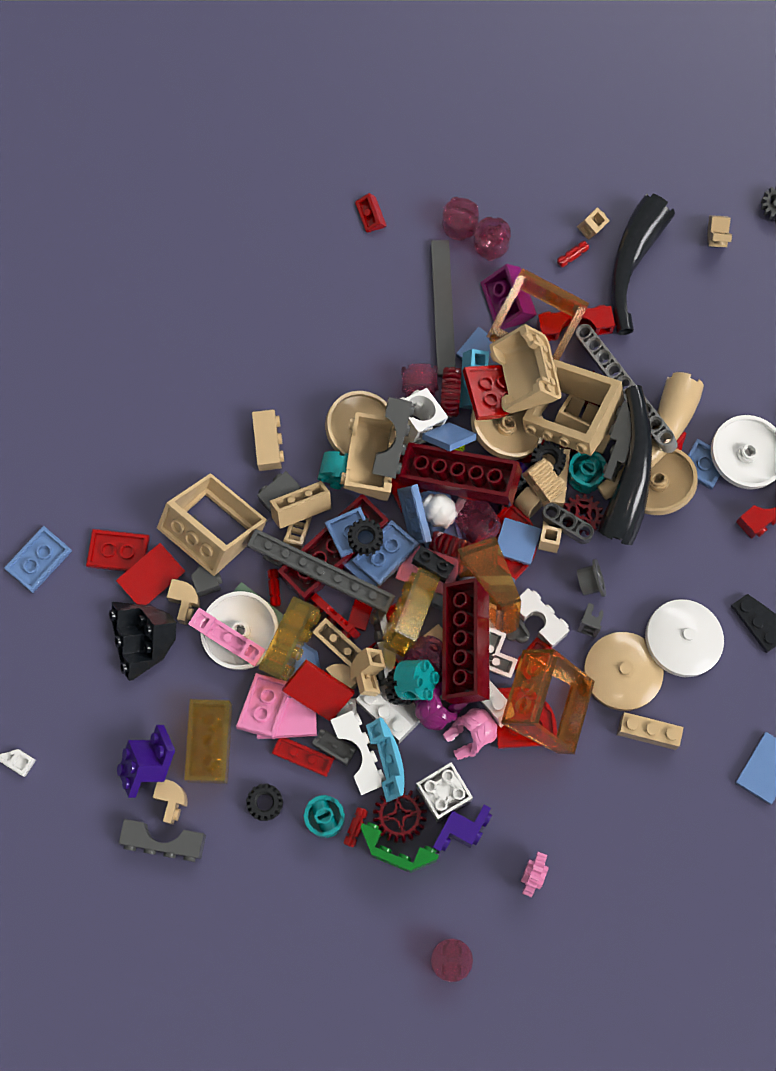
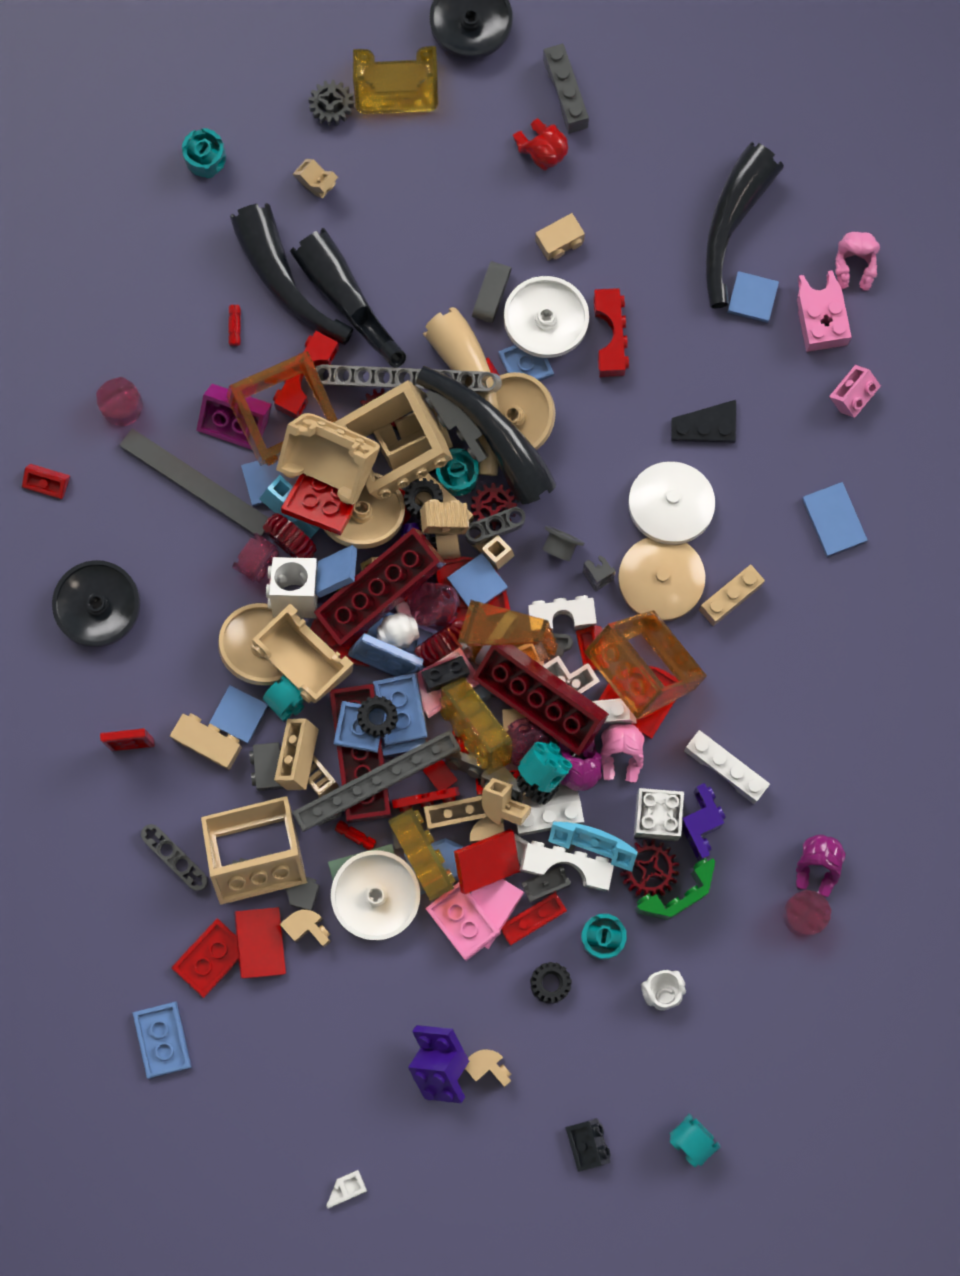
camera: 55 degrees left, 5 degrees up
(136, 835) = (499, 1120): dark grey arch -> none
(141, 636) = (313, 991): black brick -> none
(163, 915) = (588, 1144): none -> black bracket
(171, 477) = (176, 855): none -> dark grey beam
(208, 741) = (459, 994): clear yellow brick -> none
(218, 994) = (694, 1141): none -> teal brick
(226, 637) = (376, 910): bright pink slope -> none
(227, 385) = (127, 739): none -> red tile
(302, 448) = (239, 714): none -> medium blue tile
(309, 301) = (96, 603): none -> black dish
(316, 890) = (664, 989): none -> white hair
(355, 827) = (631, 916): red axle -> none
(387, 461) = (320, 644): dark grey arch -> none
(492, 238) = (163, 387): clear pink brick -> none
(507, 942) = (825, 852): none -> magenta hair
(518, 819) = (729, 767): none -> white arch
(534, 874) = (785, 787): bright pink gear -> none
(593, 223) = (219, 284): tan brick -> none
(658, 289) = (333, 278): none -> black brick
(676, 149) = (204, 152): none -> teal brick
(736, 403) = (491, 292): none -> dark grey beam

